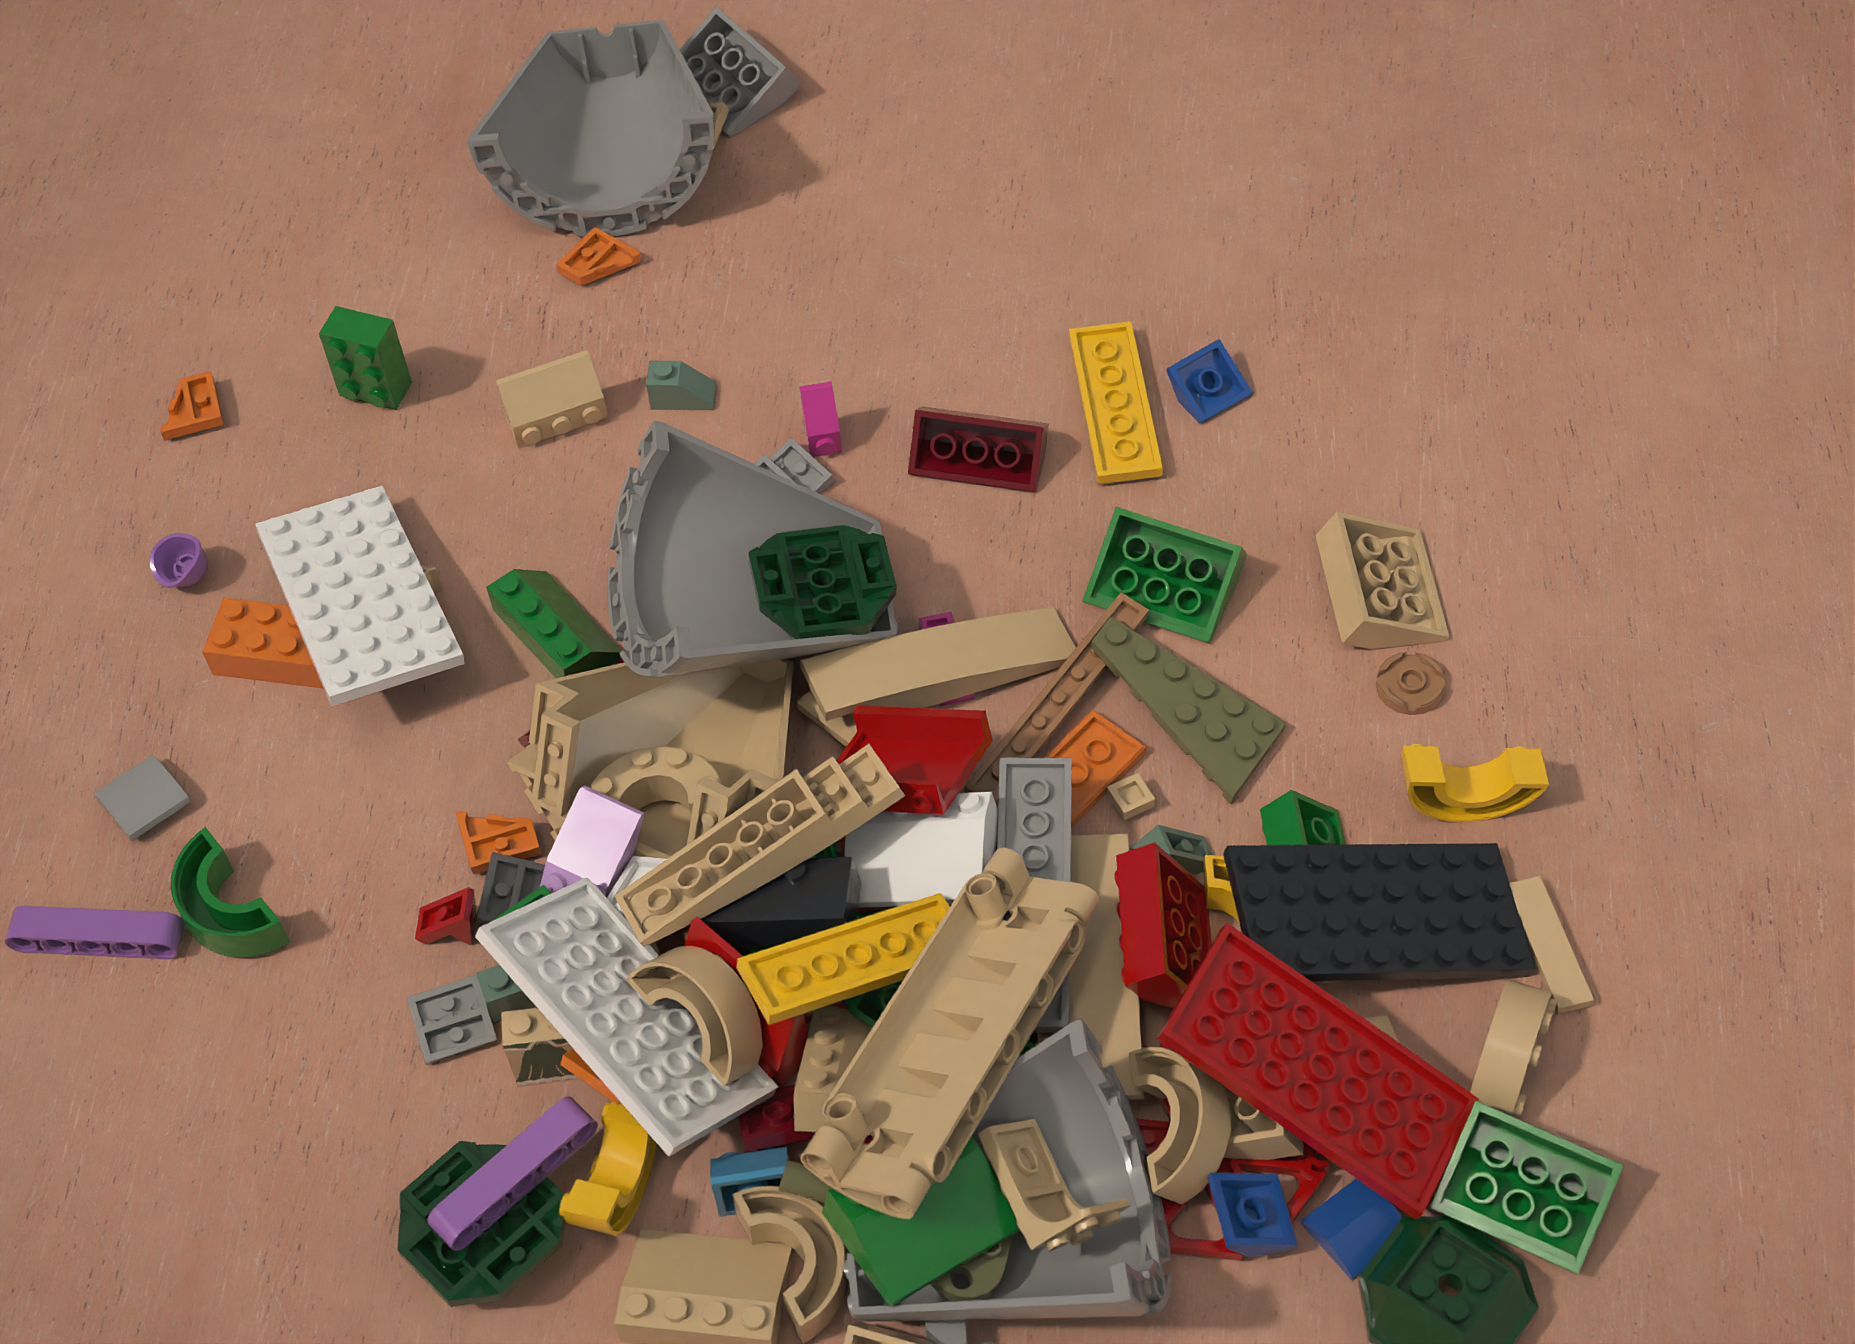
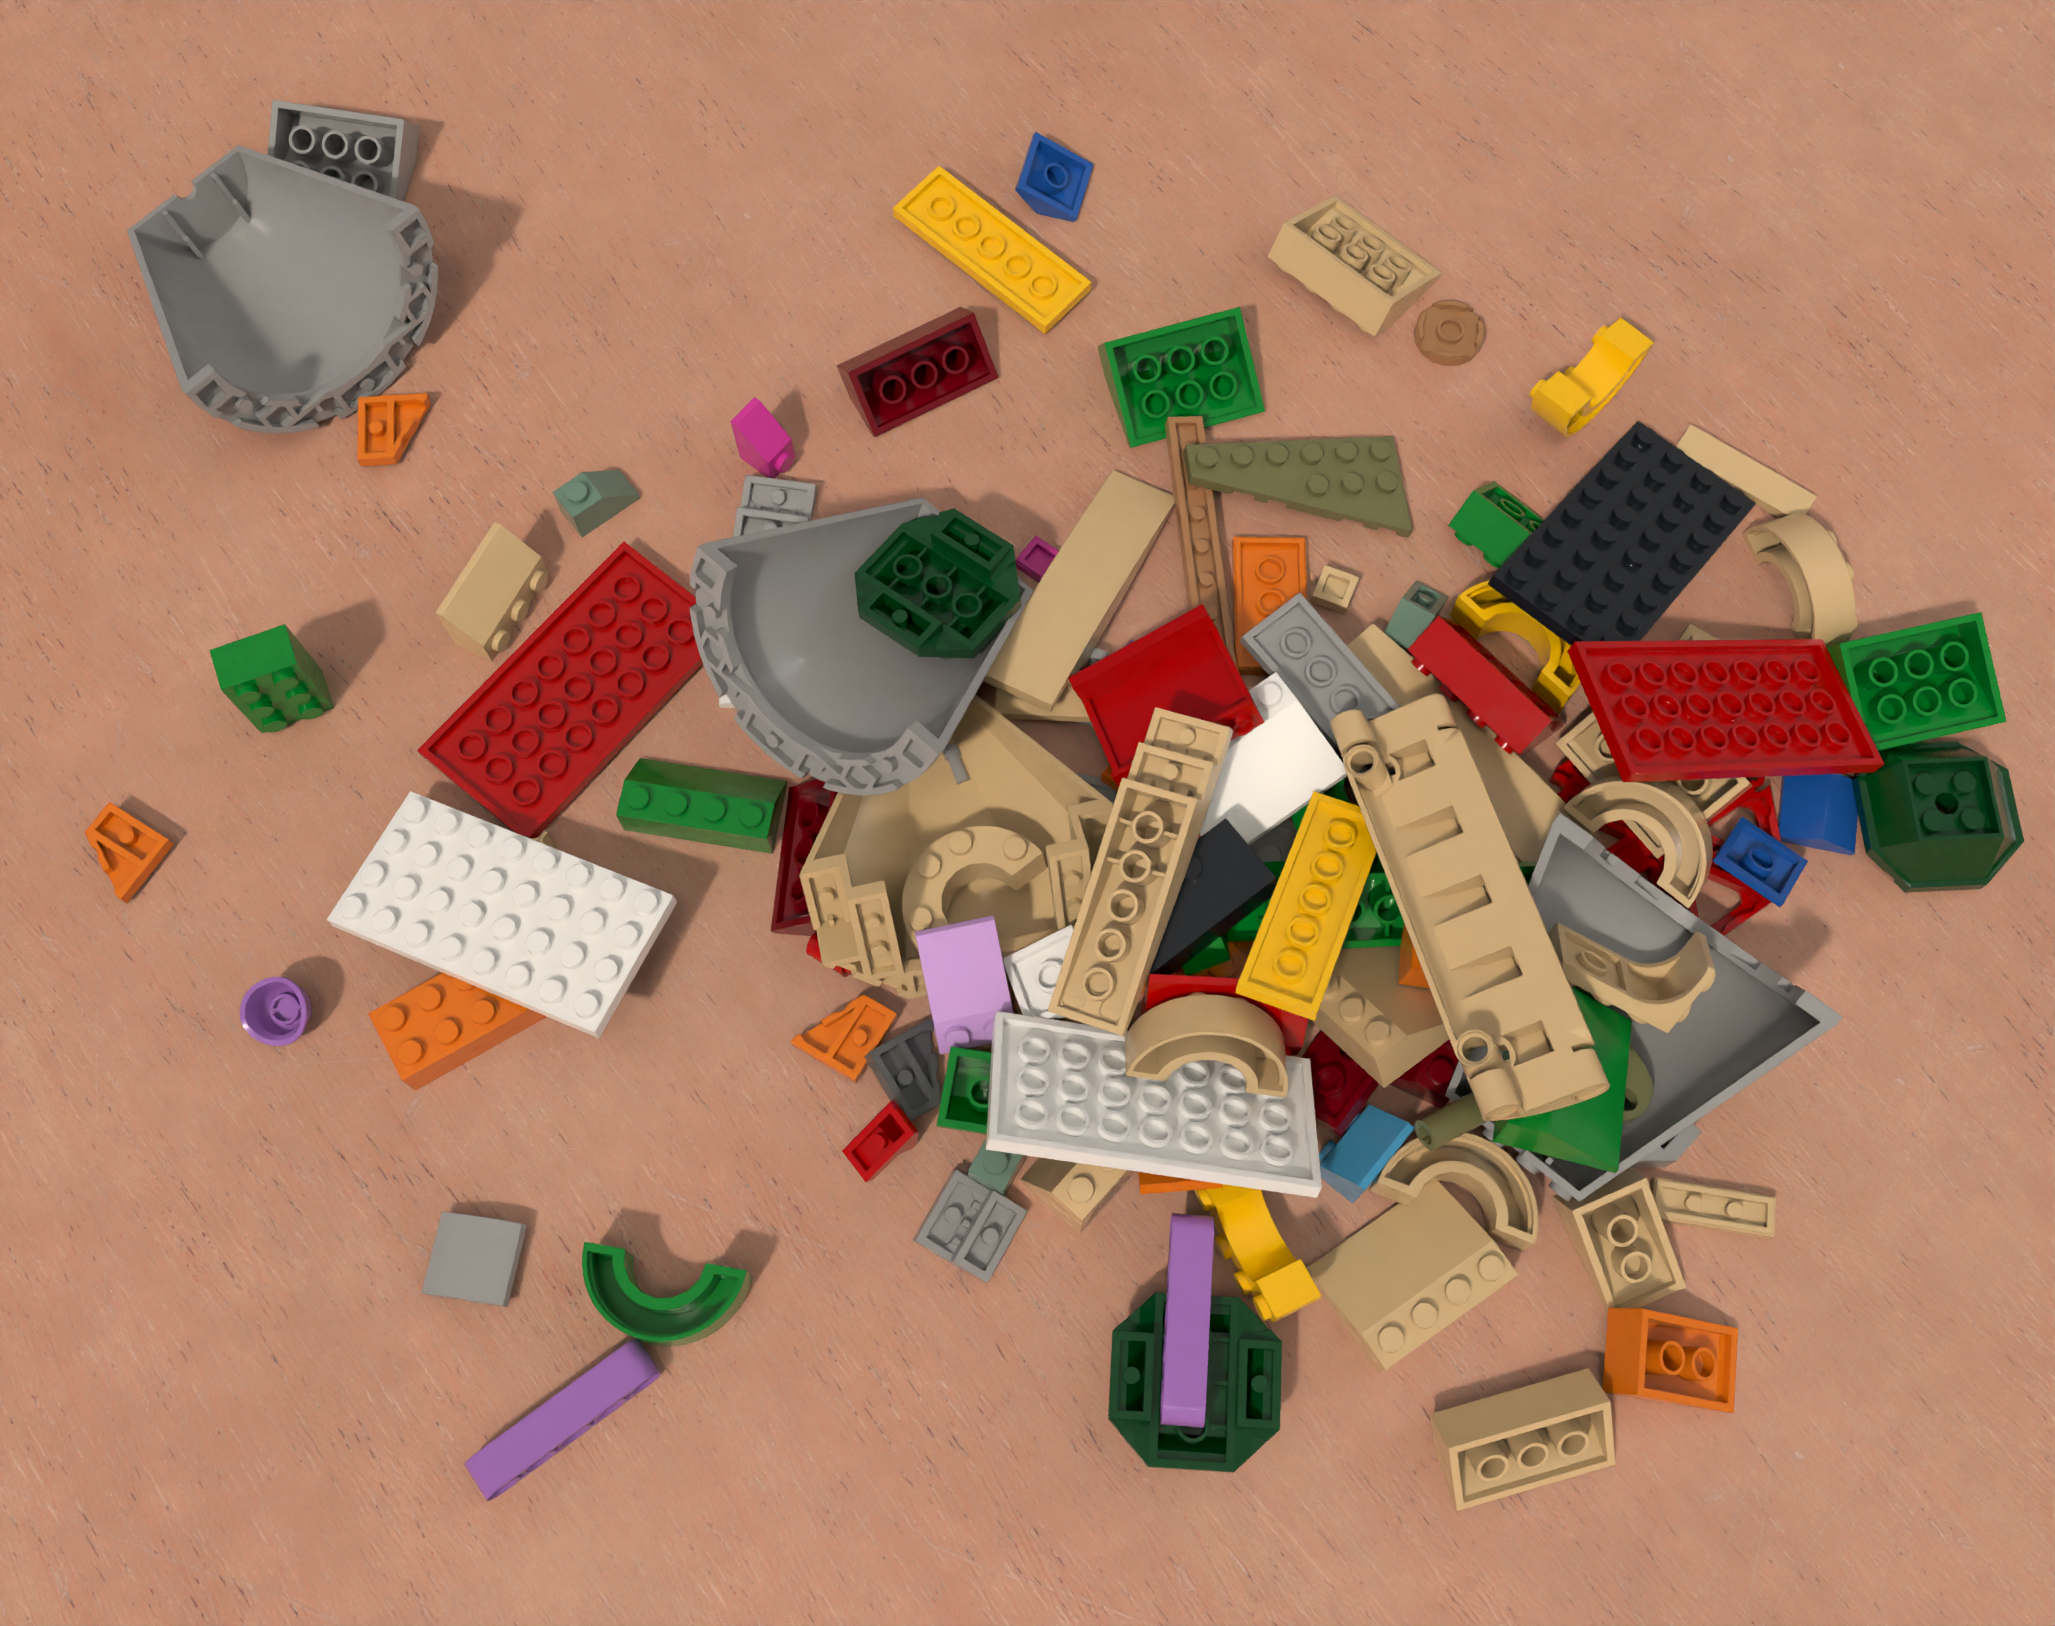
camera: 45 degrees left, 15 degrees up
(522, 502) = (570, 694): none -> red plate
(748, 714) = (952, 754): none -> light grey piece

